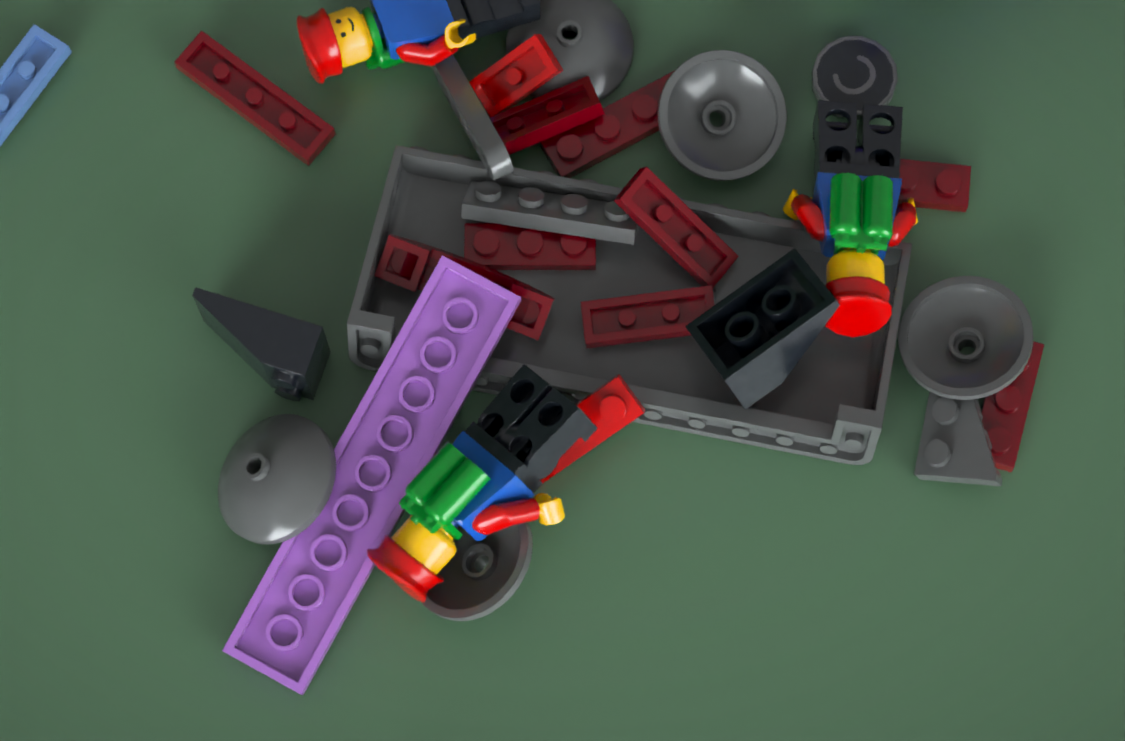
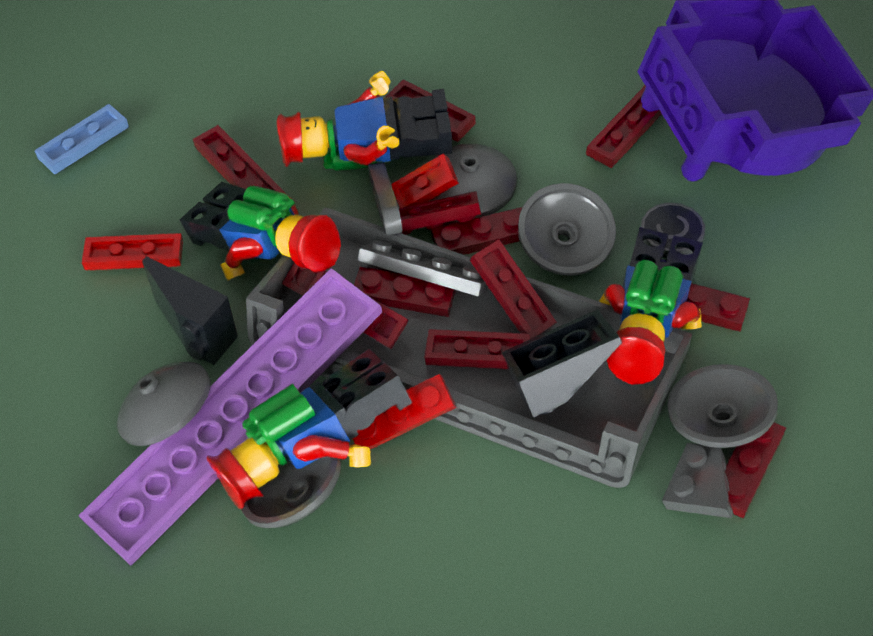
camera: 15 degrees right, 20 degrees down
(152, 258) = (130, 250): none -> red plate
(323, 203) = (261, 225): none -> piece

